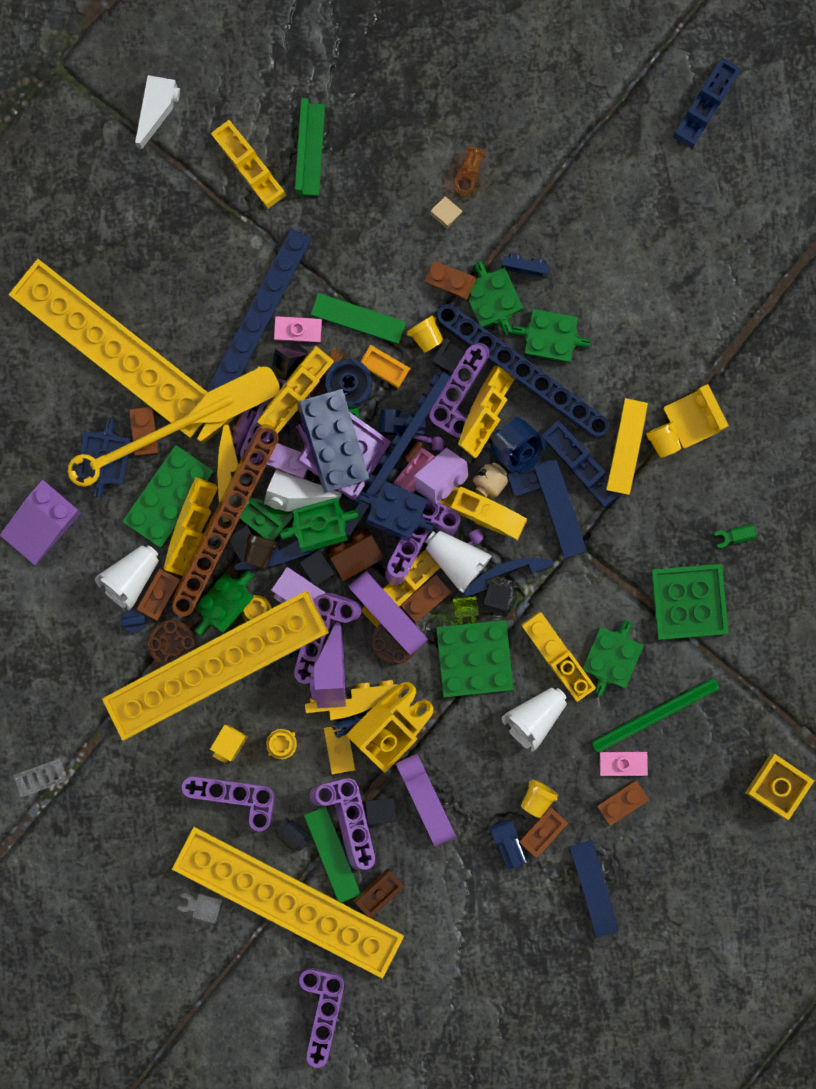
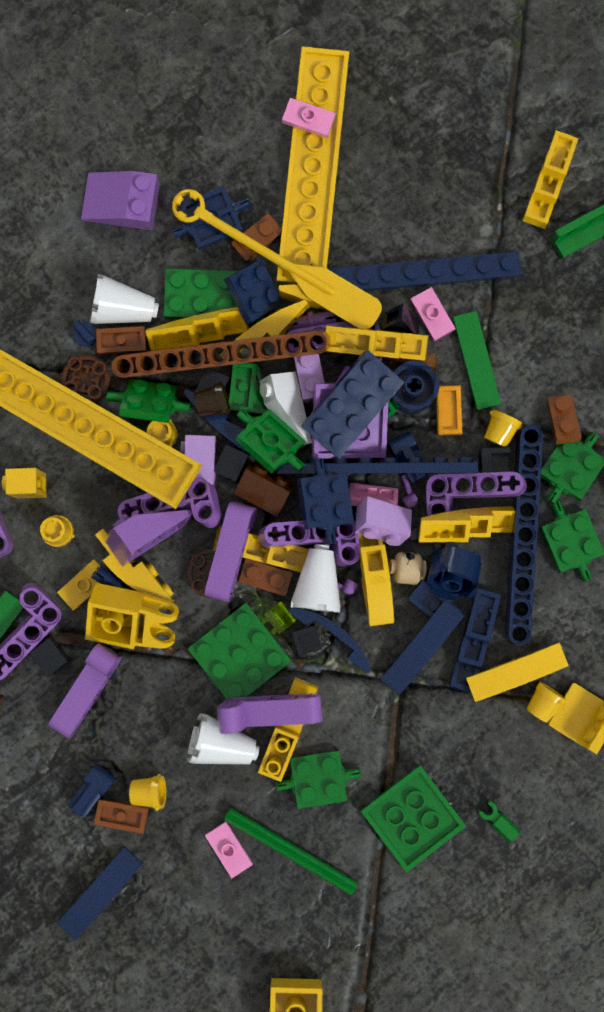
camera: 60 degrees right, 0 degrees up
(73, 327) = (308, 118): none -> bright pink plate
(156, 106) = (548, 68): white slope -> none
(189, 461) = (253, 291): none -> dark blue plate
(411, 450) = (390, 480): reddish brown slope -> none
(532, 663) = (272, 710): none -> medium lavender beam
(623, 802) = (193, 871): dark orange plate -> none

